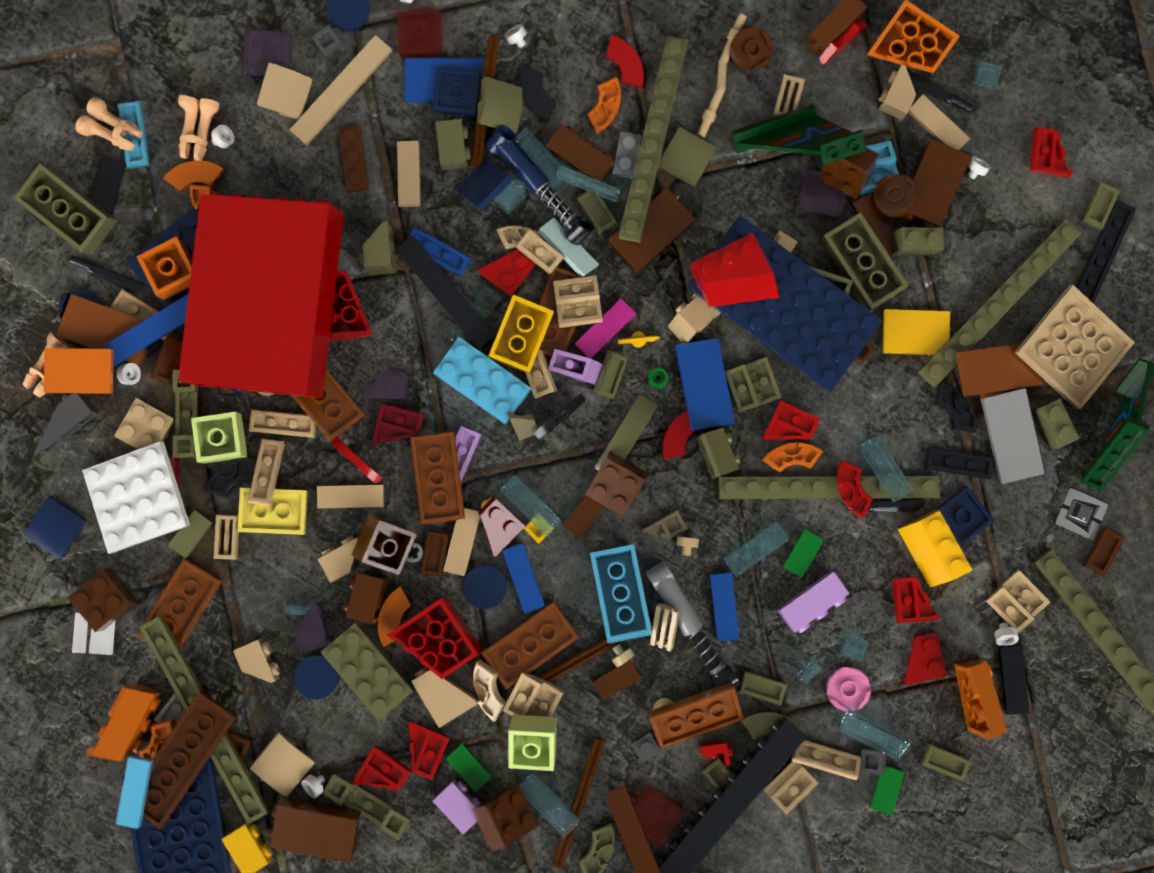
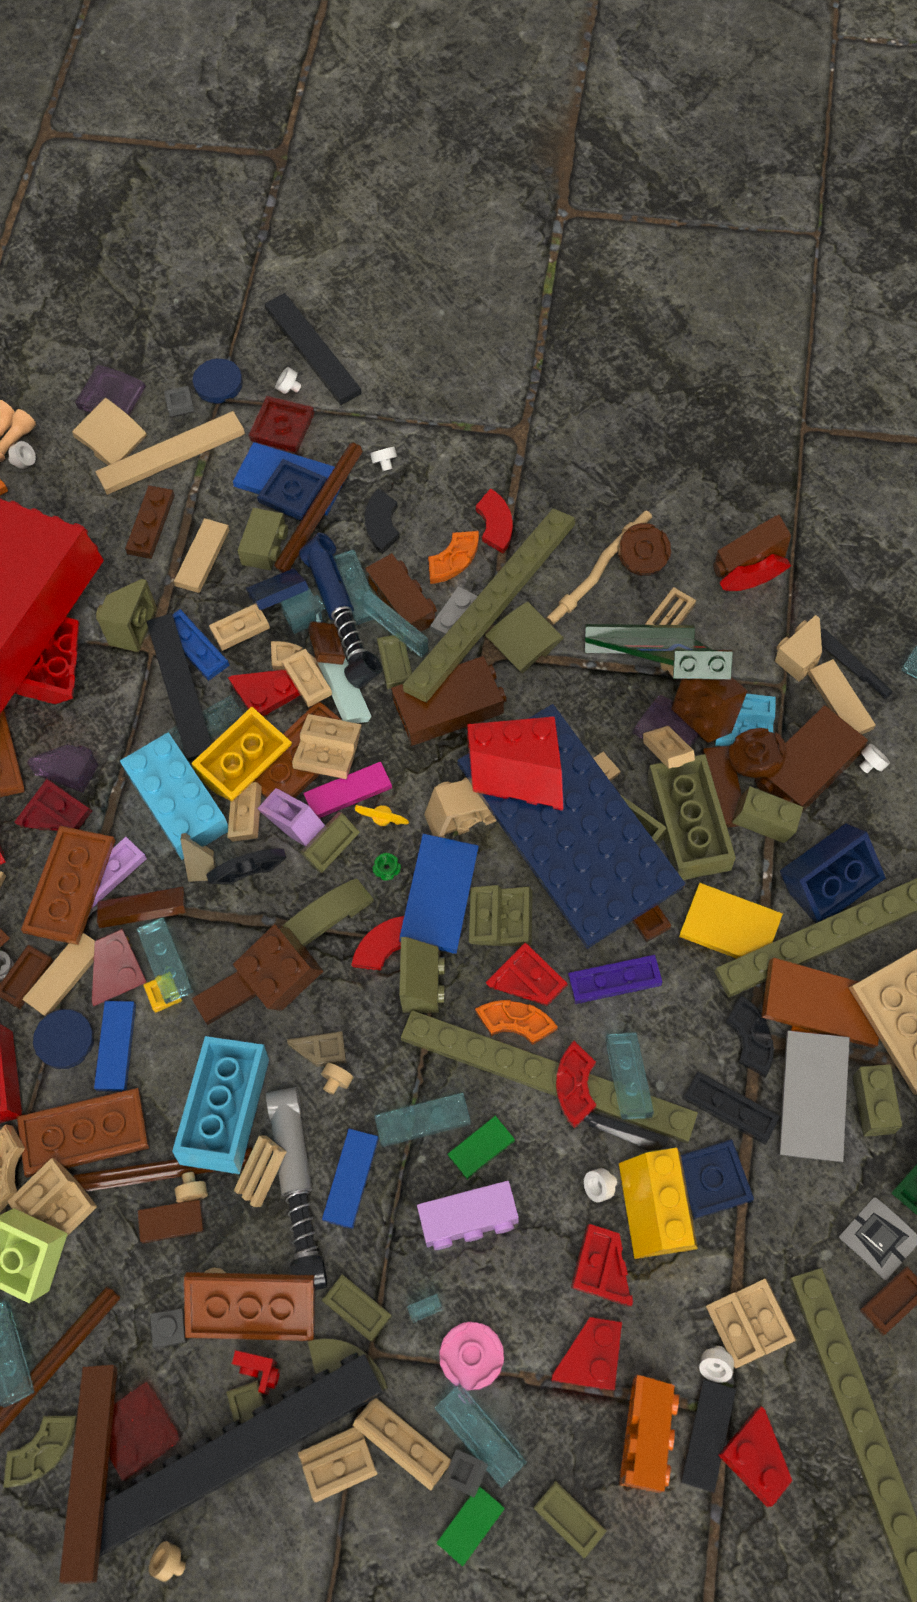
camera: 25 degrees right, 20 degrees down
(466, 226) = (239, 627): none -> tan plate
(496, 473) = (141, 907): none -> reddish brown tile
(500, 104) = (332, 513): olive slope -> none
(541, 217) = (326, 643): none -> reddish brown tile
(833, 216) = (668, 747): none -> tan plate
(850, 402) = (614, 979): none -> dark purple plate
(854, 647) = (501, 1301): clear light blue tile -> none
(892, 549) = (599, 1184): none -> white tile
(914, 40) = (841, 595): orange wedge -> none
(975, 267) = (833, 873): none -> dark blue slope
(1049, 682) = (758, 1458): none -> red wing

